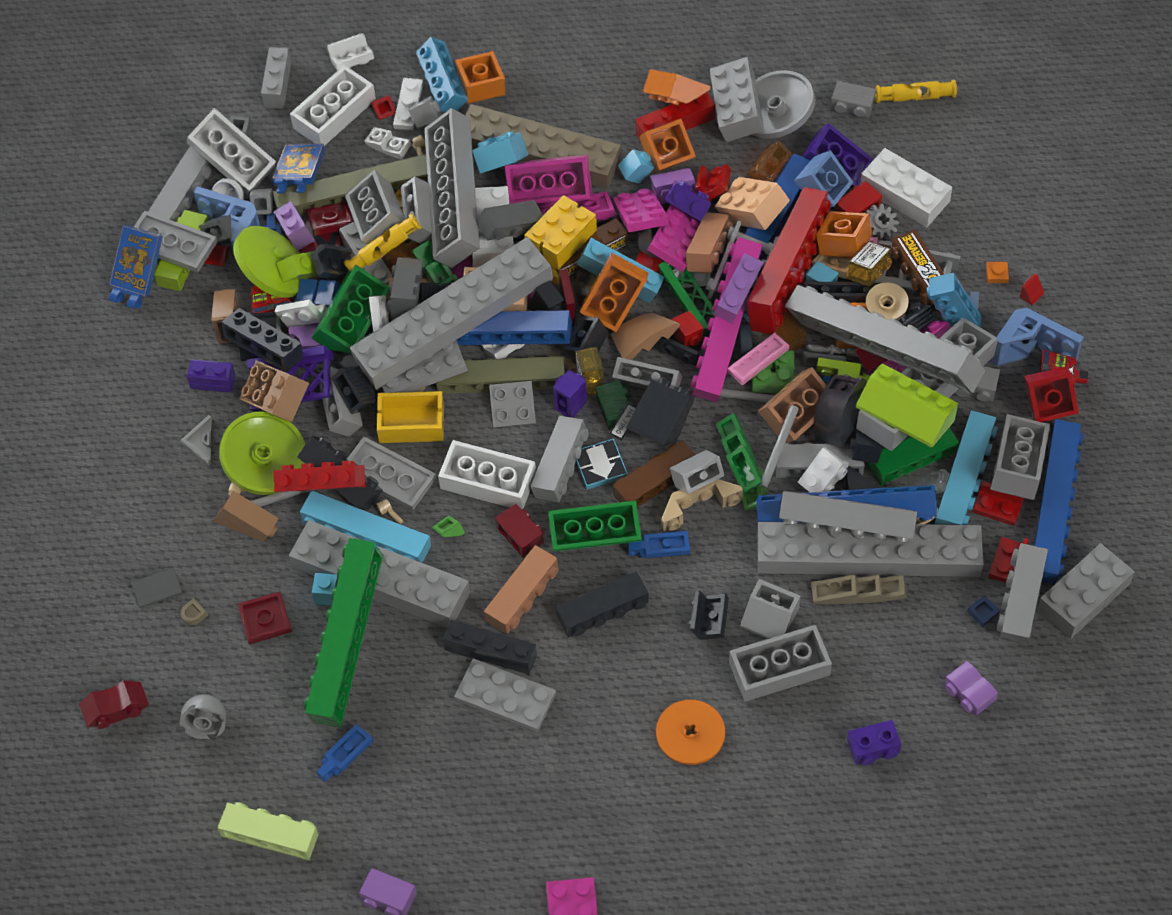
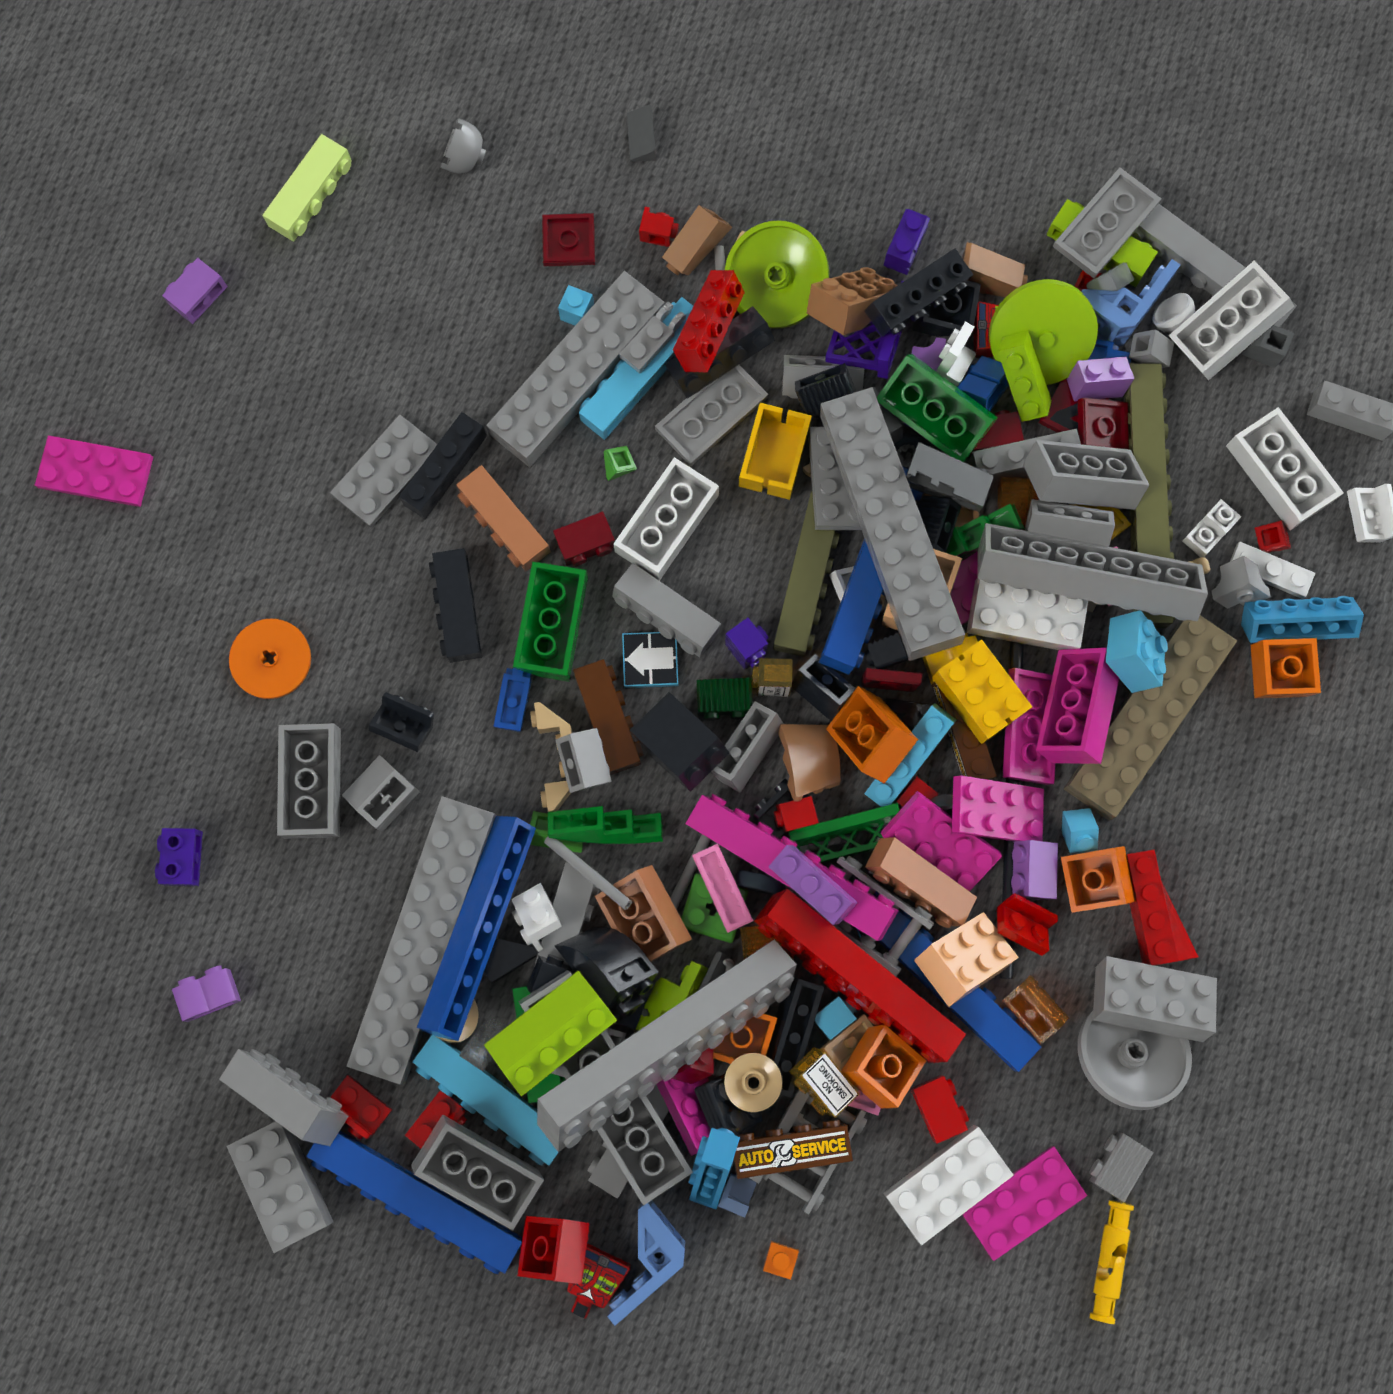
camera: 105 degrees right, 20 degrees up
(114, 704) = (508, 63): dark red brick -> none
(134, 265) = (1084, 176): blue tile -> none
(193, 613) = (599, 166): dark tan tile -> none
(200, 440) = (824, 216): light grey tile -> none
(240, 551) = (657, 228): none -> red brick
(298, 166) = (1194, 403): blue tile -> none
(330, 261) = (1011, 398): black bracket -> none
(342, 519) = (651, 339): none -> light grey hinge
(343, 632) = (496, 302): green brick -> none
(344, 752) = (373, 285): blue hinge -> none
(378, 311) = (907, 437): white tile -> none
(384, 507) = (668, 400): tan hand -> none
(386, 242) = (1021, 465): yellow piece -> none
(509, 219) = (1011, 629): dark grey brick -> none
(512, 404) = (763, 577): light grey hinge -> none
(619, 429) = (692, 700): sticker -> none
(672, 87) = (1192, 918): orange slope -> none
(688, 200) = (996, 876): dark purple brick -> none
(825, 174) = (980, 1070): medium blue brick -> none
(846, 152) = (1024, 1108): dark purple slope -> none
(848, 515) = (450, 918): light grey brick -> none
(858, 590) = (378, 910): dark tan slope -> none
(882, 222) = (910, 1124): light grey gear -> none
(886, 134) = (1024, 1203): none -> dark pink plate
(983, 611) = (300, 1048): dark blue plate -> none
(1032, 290) = (735, 1295): red slope -> none

